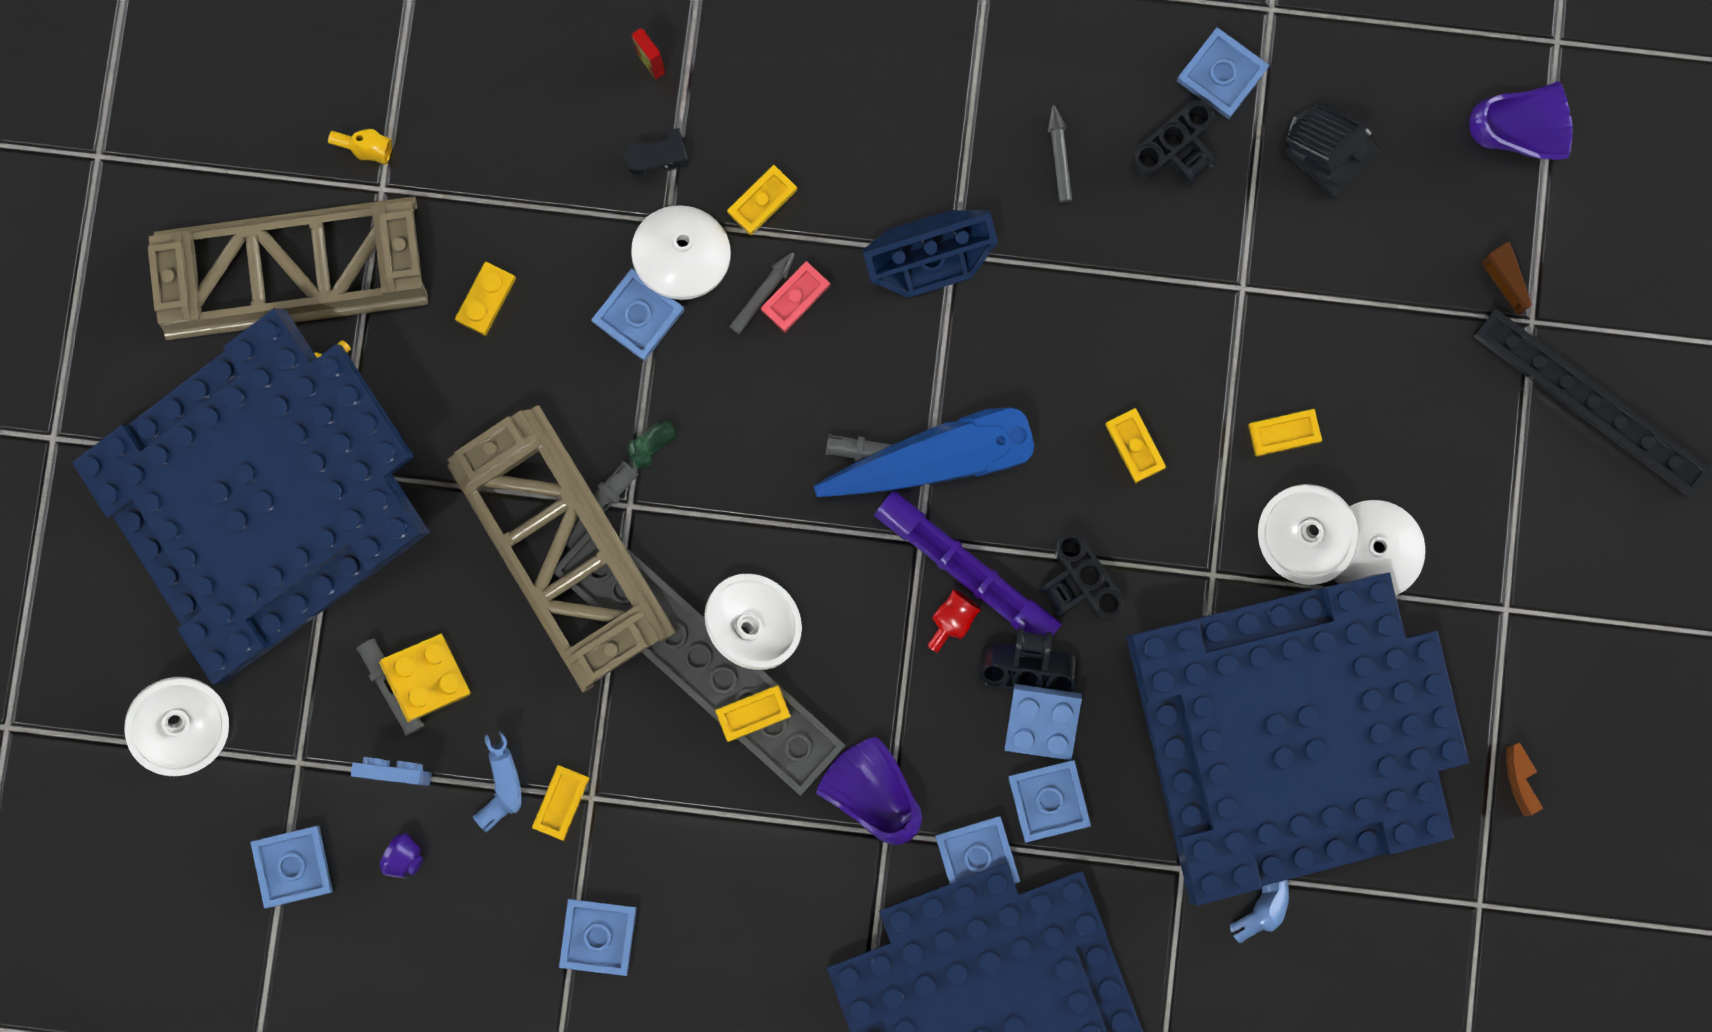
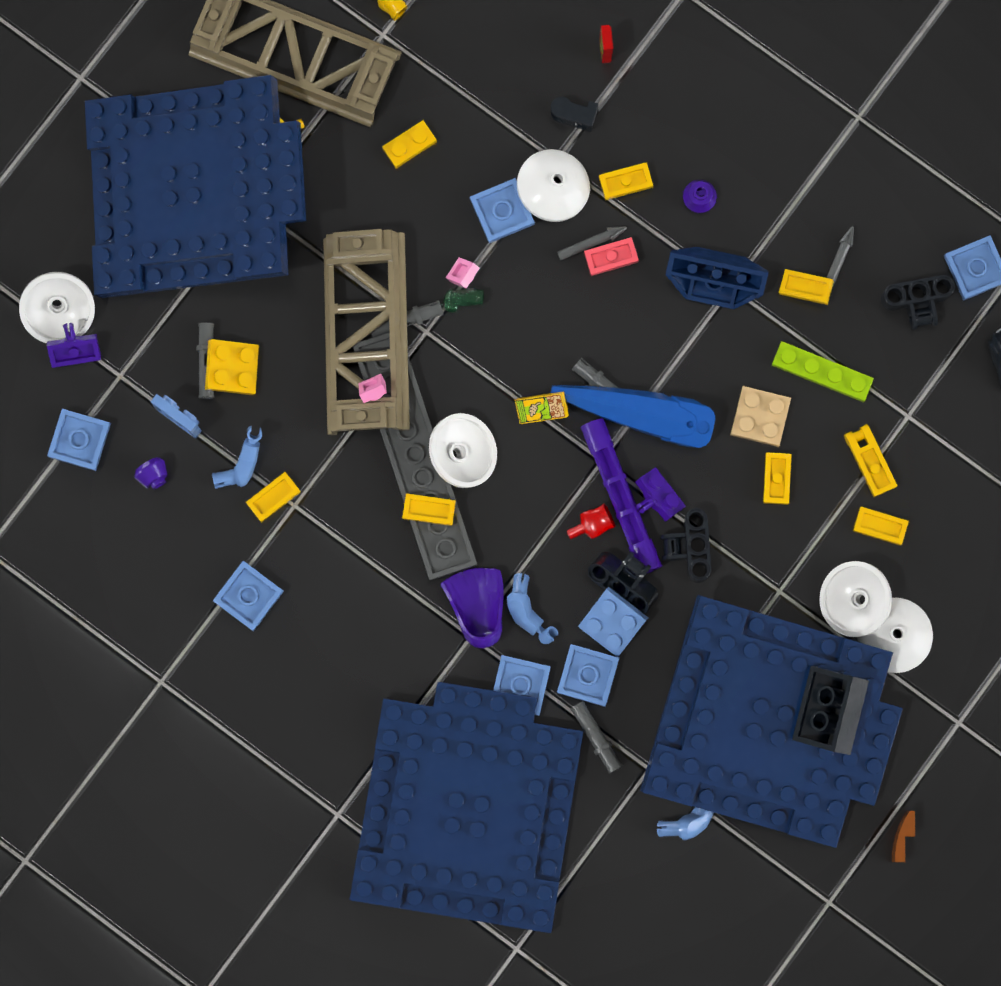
camera: 25 degrees right, 0 degrees up
(224, 762) = (73, 348): none -> dark purple plate
(605, 610) = (372, 388): none -> bright pink plate
(633, 413) = (462, 273): none -> bright pink plate
(816, 518) = (541, 407): none -> tile
(851, 175) = (693, 198): none -> dark purple cone
(930, 771) = (522, 613): none -> medium blue arm
(1010, 543) = (658, 495): none -> dark purple plate
(1040, 205) = (806, 287): none -> yellow tile
(1074, 384) = (760, 416): none -> tan plate
(1101, 868) = (596, 737): none -> dark grey pin
(1115, 292) = (822, 371): none -> lime plate
(1231, 364) = (871, 461): none -> yellow plate
(1359, 682) = (830, 710): none -> black slope

